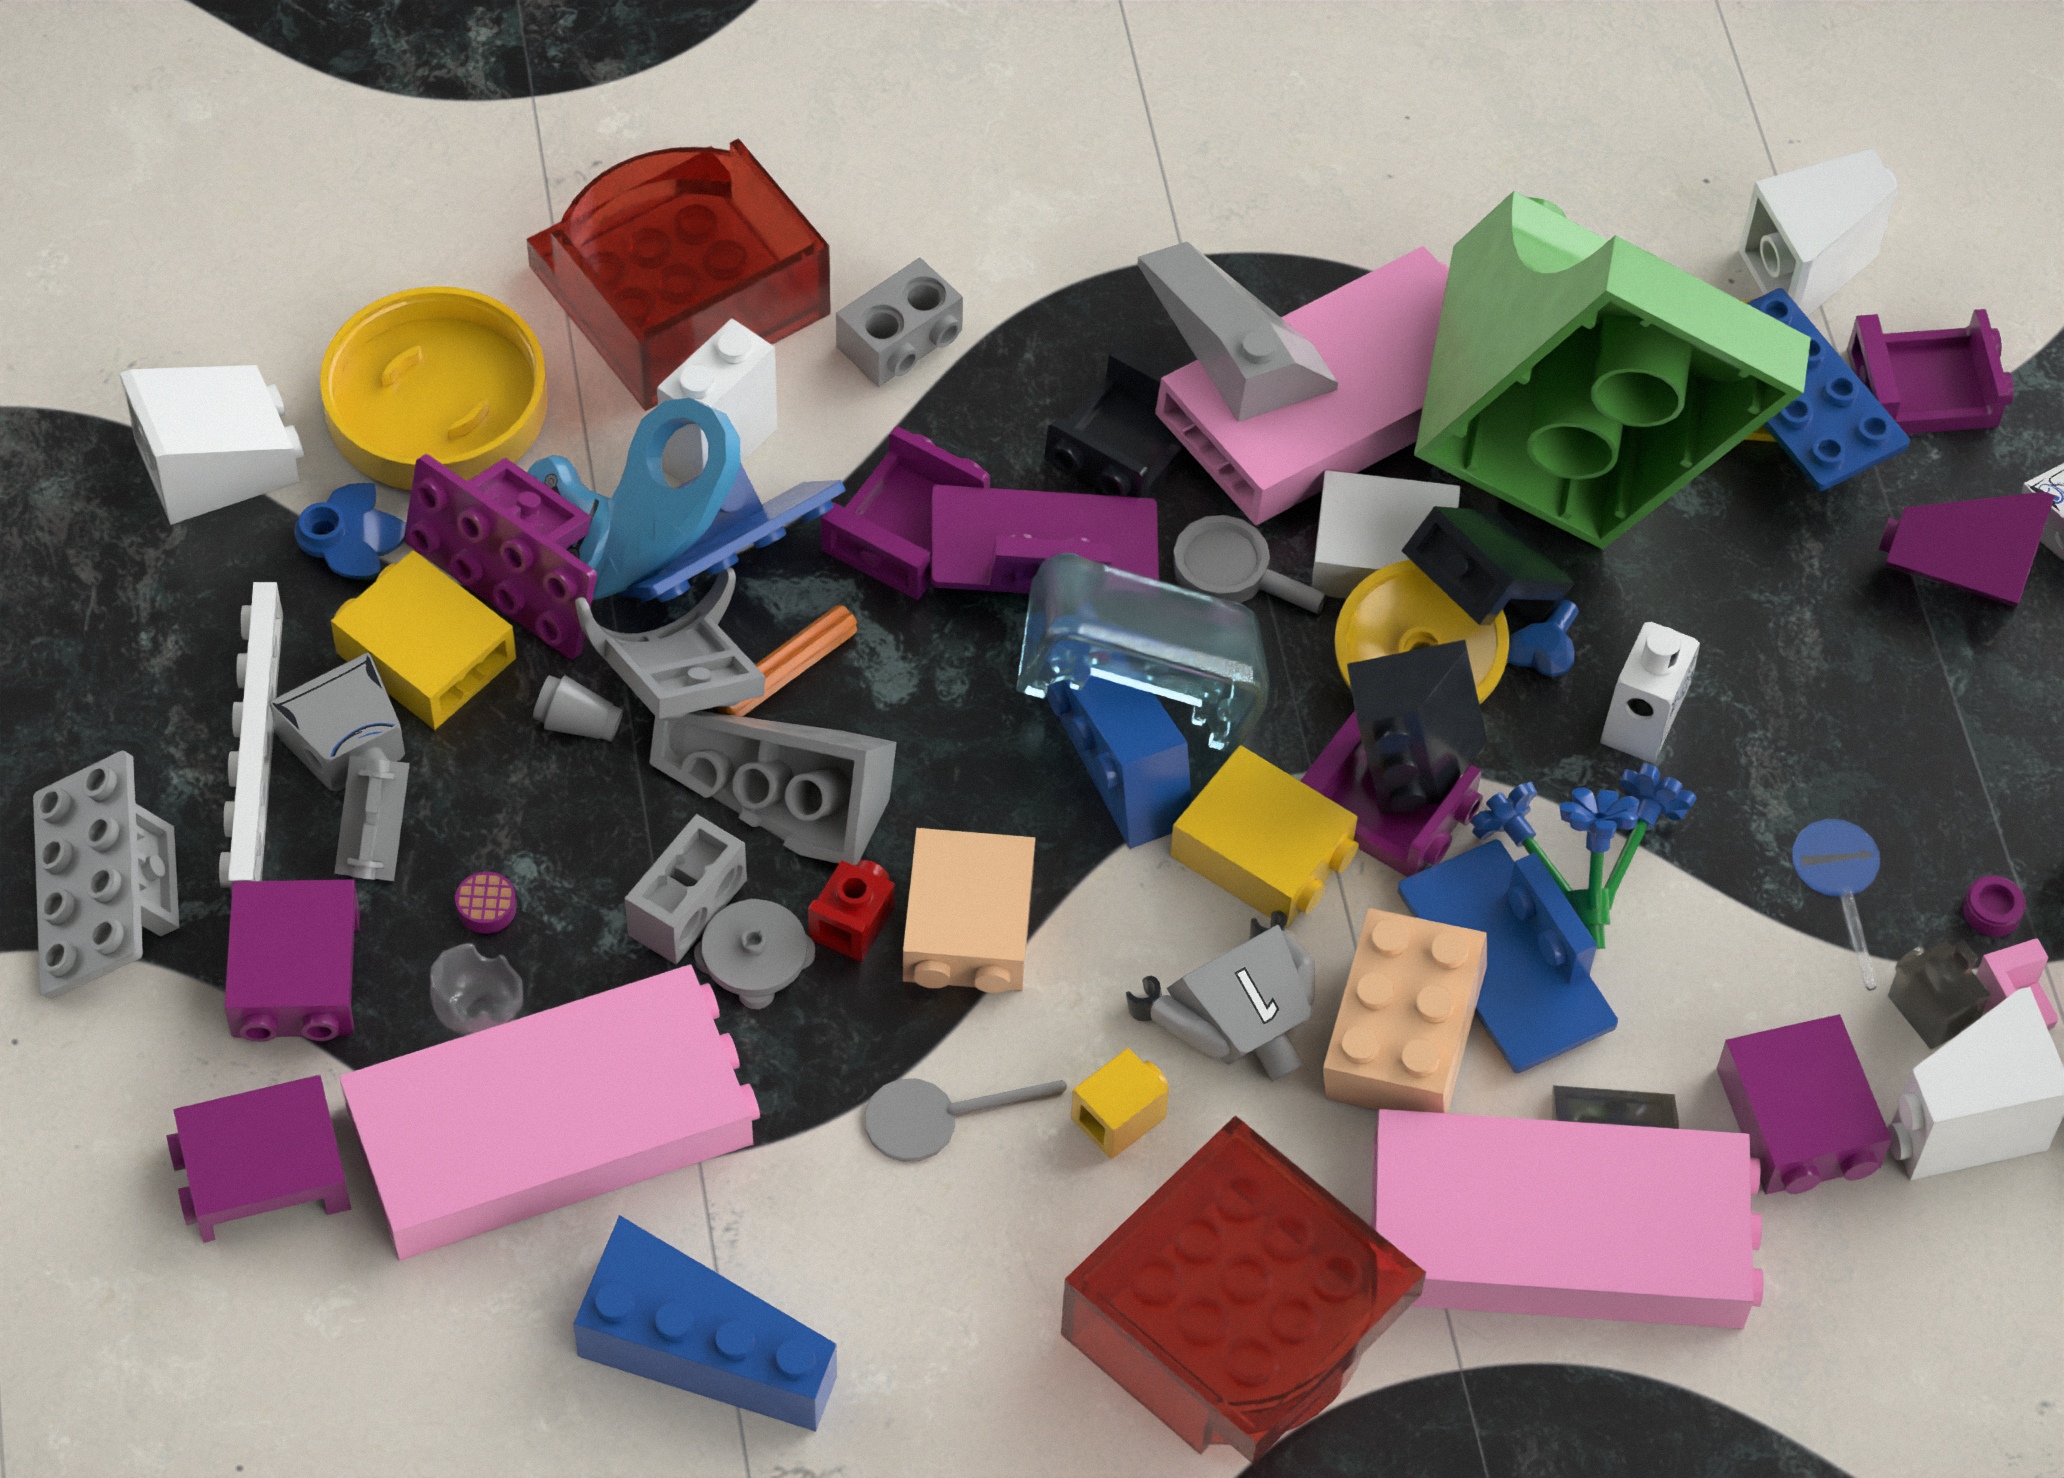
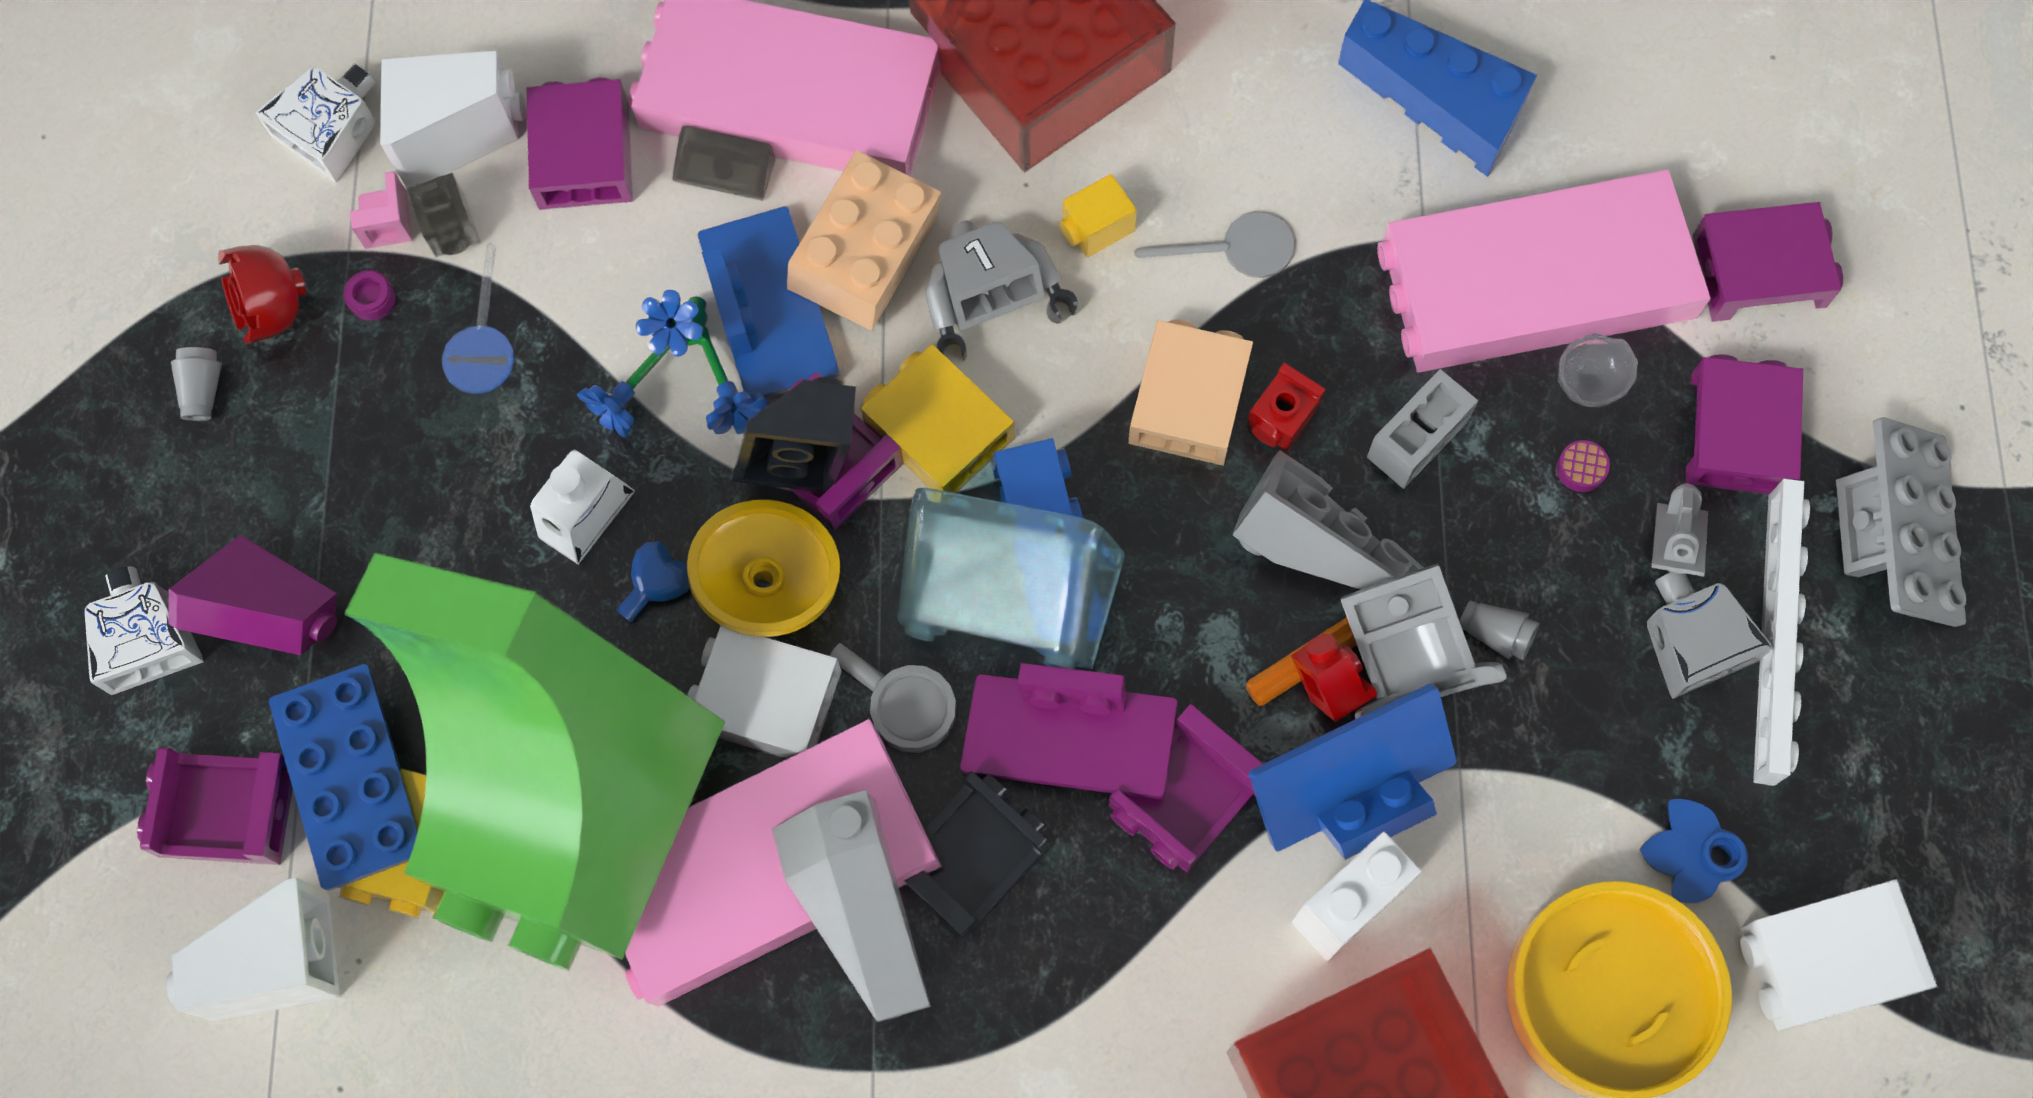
camera: 165 degrees left, 15 degrees up
(425, 638) = (1634, 717): yellow brick -> none
(505, 543) = (1549, 789): magenta bracket -> none
(647, 519) = (1444, 774): dark azure animal -> none
(754, 950) = (1365, 393): light grey piece -> none
(763, 621) = (1332, 676): none -> red brick
(899, 322) = (1172, 1018): light grey brick -> none
(1485, 564) = (686, 615): black panel -> none

